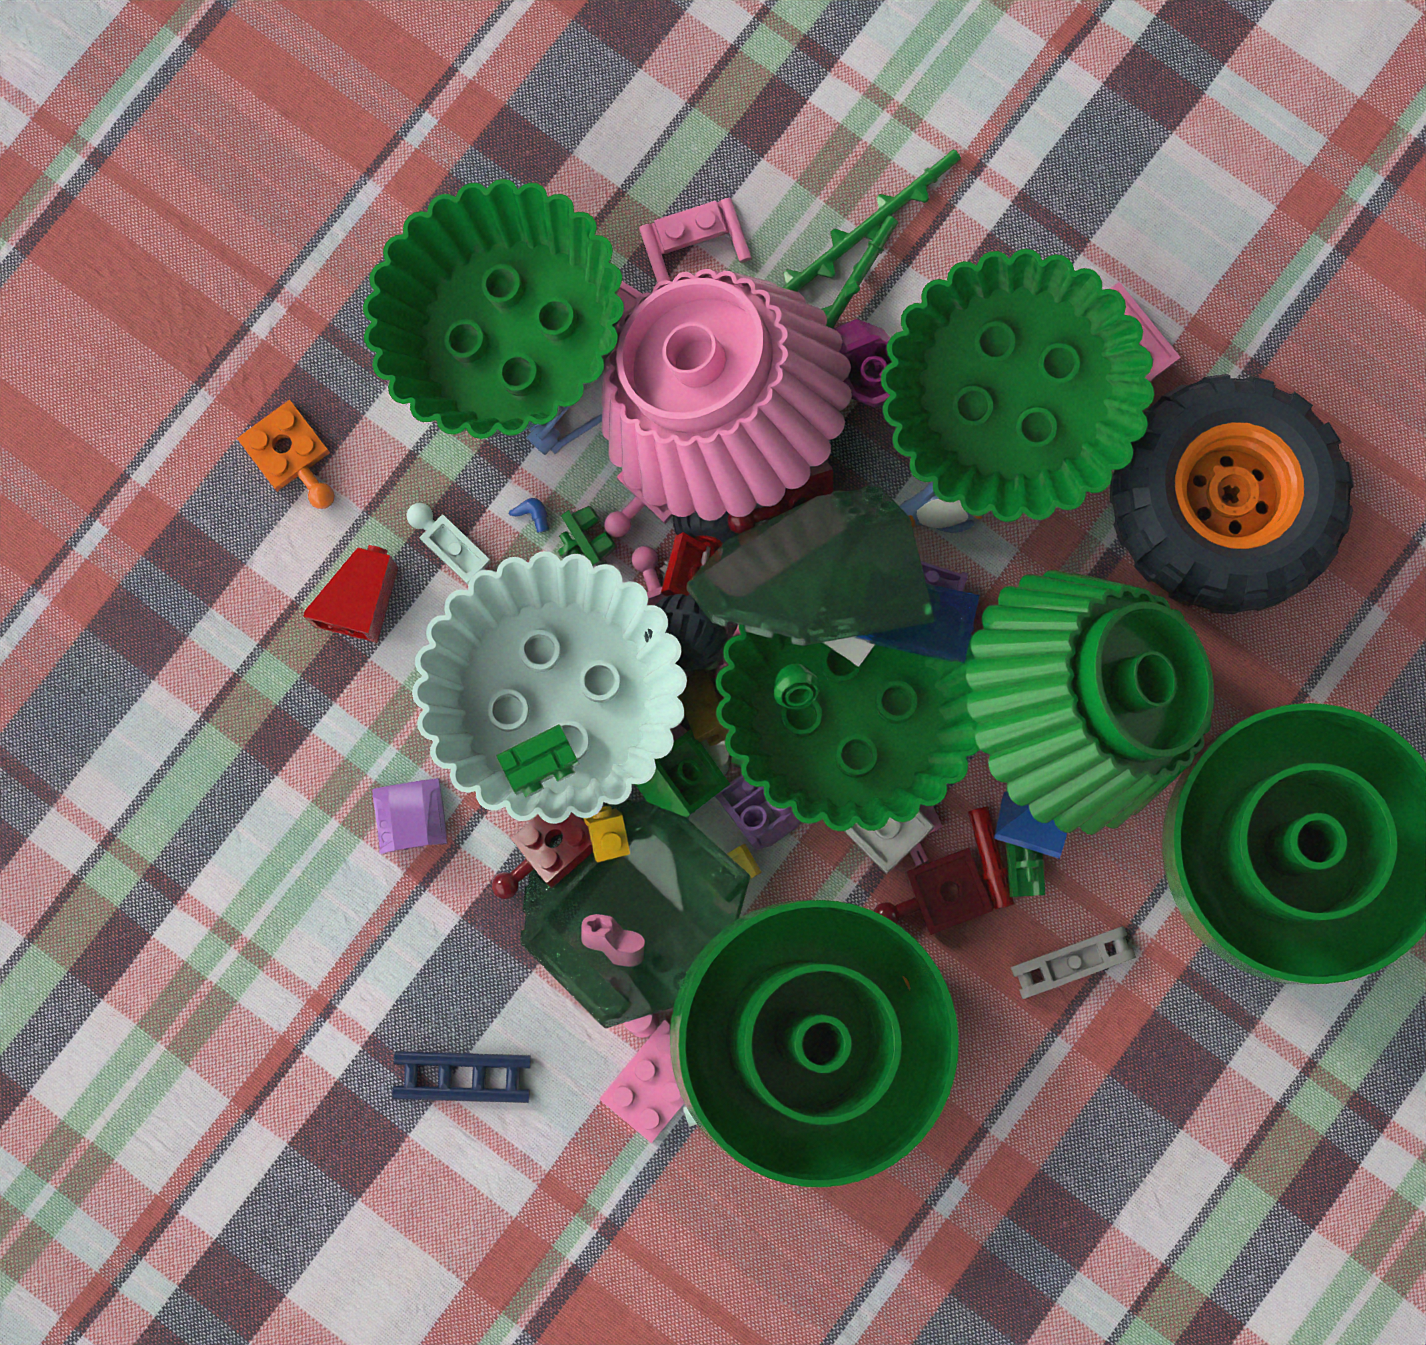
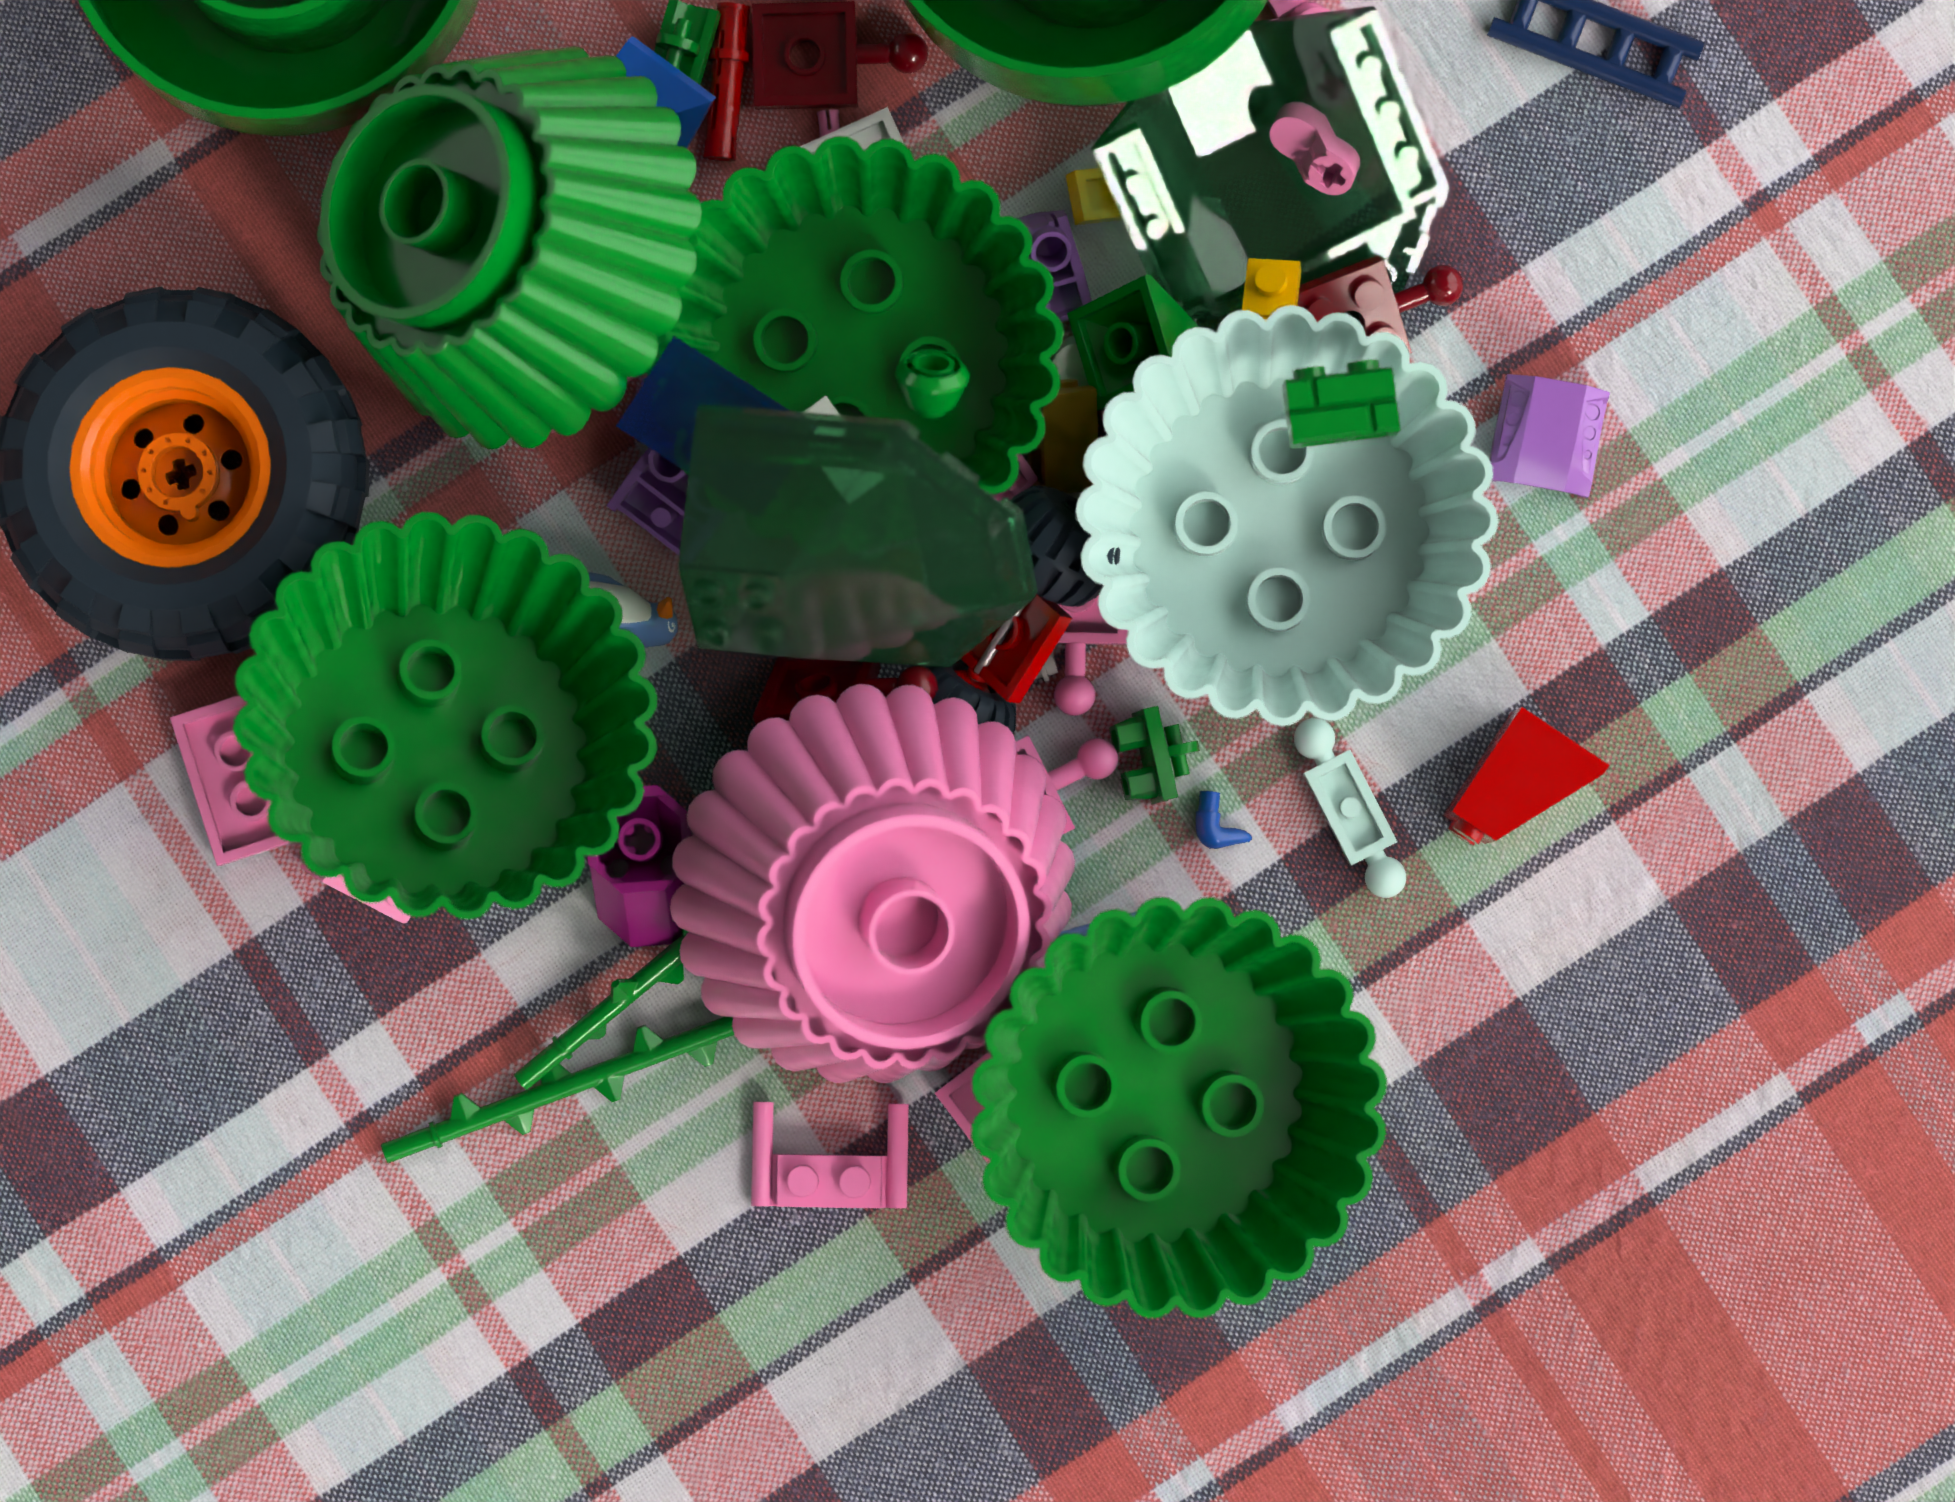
camera: 160 degrees left, 5 degrees up
(285, 467) = (1524, 1035): orange plate -> none

